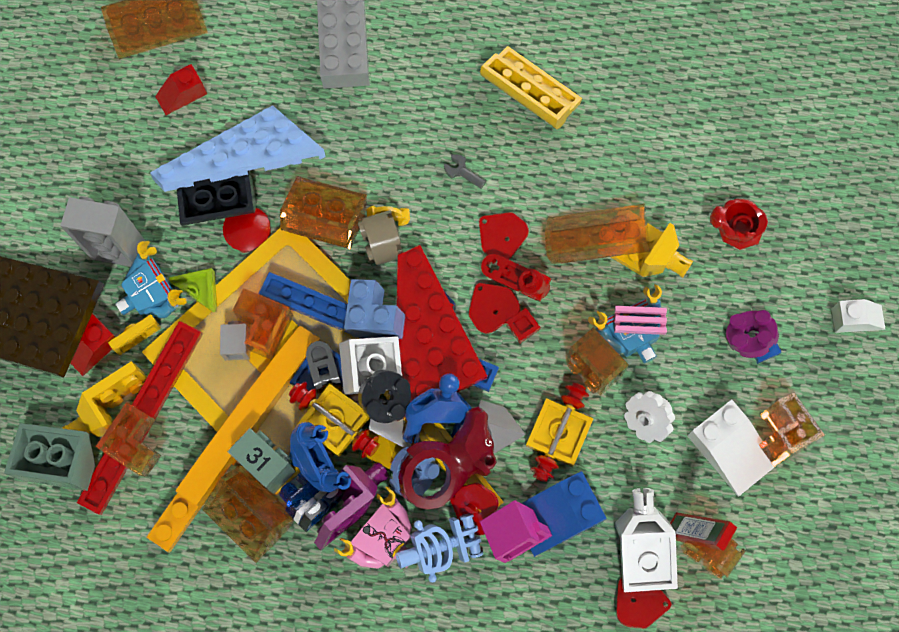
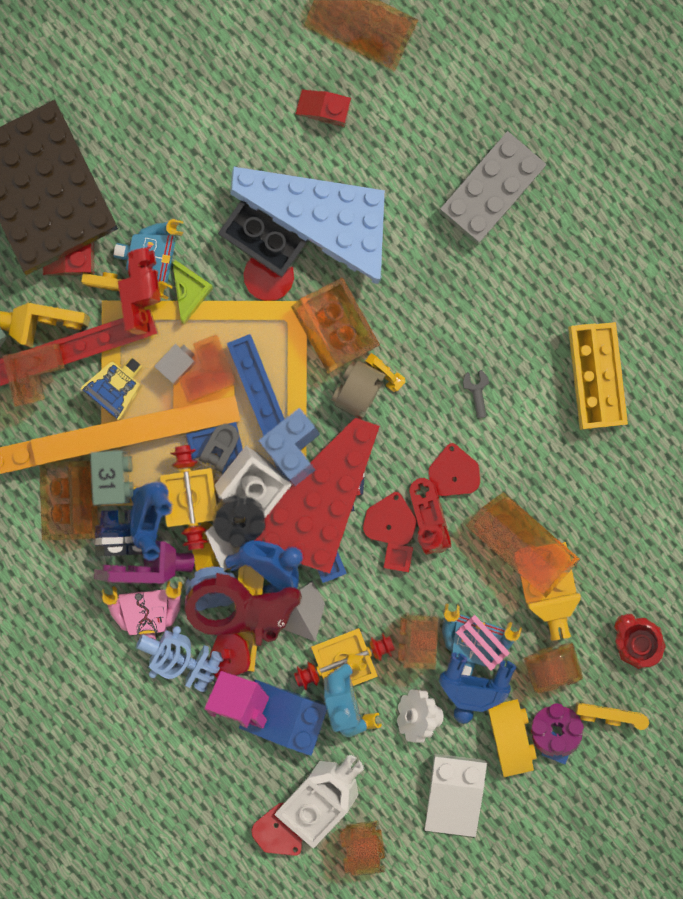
camera: 45 degrees right, 15 degrees up
(101, 230) = (155, 188): light grey brick -> none
(158, 309) = (139, 290): none -> red plate
(205, 398) = (115, 387): none -> torso
(588, 455) = (342, 701): none -> dark azure torso
(669, 362) = (473, 692): none -> blue connector
(703, 530) = (362, 830): tile -> none
(704, 292) = (553, 668): none -> clear orange brick
(728, 368) = (511, 738): none -> yellow brick
(776, 287) = (613, 716): none -> yellow plate
(791, 428) = (508, 827): clear orange brick -> none
(857, 316) = (649, 796): white slope -> none

